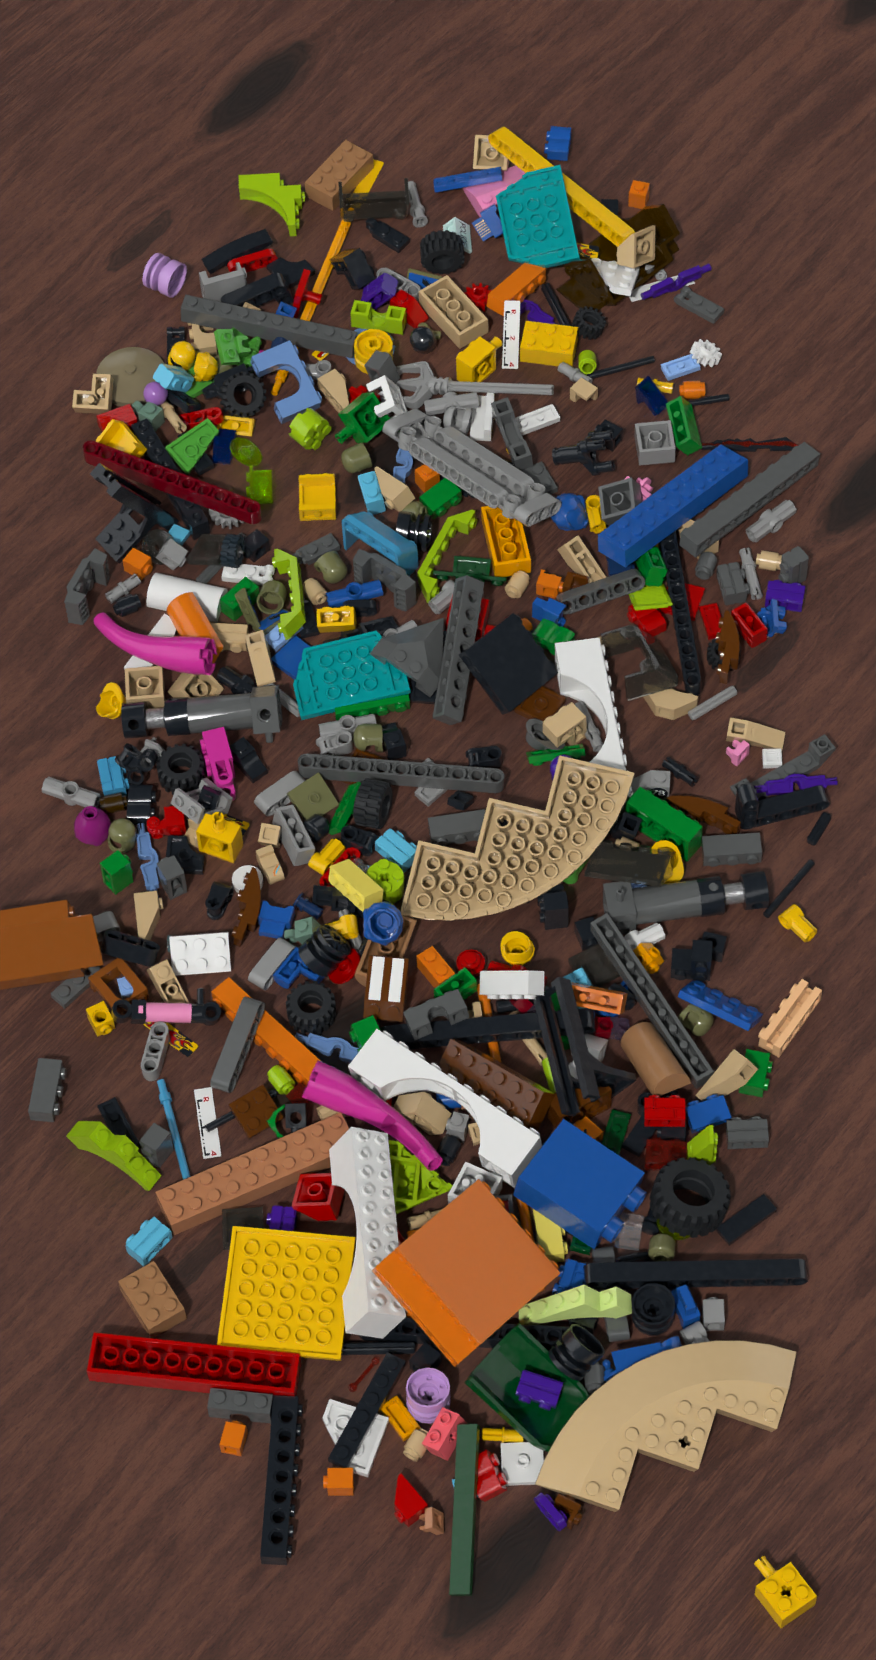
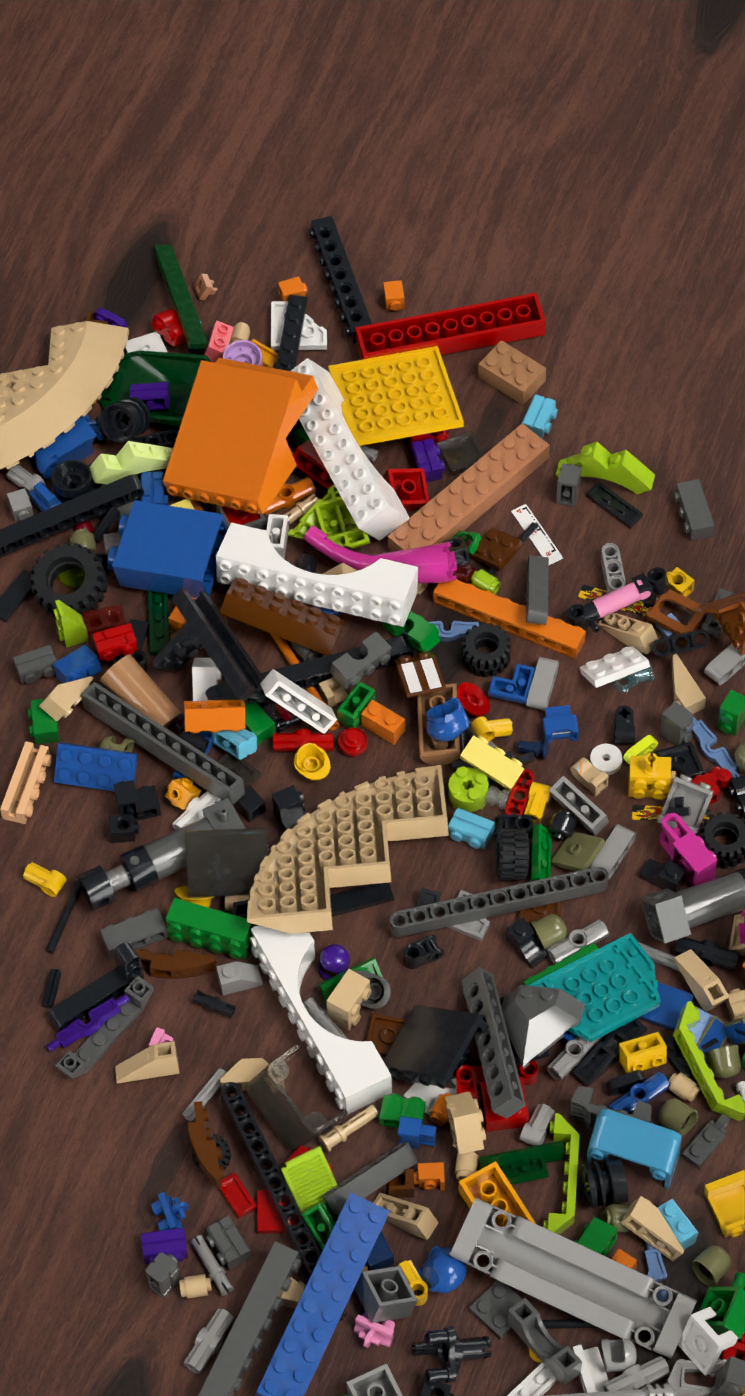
camera: 160 degrees right, 0 degrees up
(165, 1100) = (582, 536): dark azure bar -> none
(214, 873) = (641, 748): none -> neon yellow beam
(227, 1402) = (398, 311): dark grey arch -> none
(249, 904) = (589, 724): reddish brown slope -> none
(269, 835) = (602, 795): tan panel -> none
(303, 930) = (523, 716): sand green brick -> none
(324, 950) = (494, 694): black wheel -> none
(334, 743) = (582, 916): light grey piece -> none
(408, 1502) = (229, 293): red slope -> none
(456, 827) = (420, 869): dark grey brick -> none
(506, 599) = (465, 1122): none -> tan brick
(705, 565) = (261, 1253): dark grey brick -> none
(749, 625) = (192, 1189): red brick -> none
(771, 758) = (122, 1051): white tile -> none

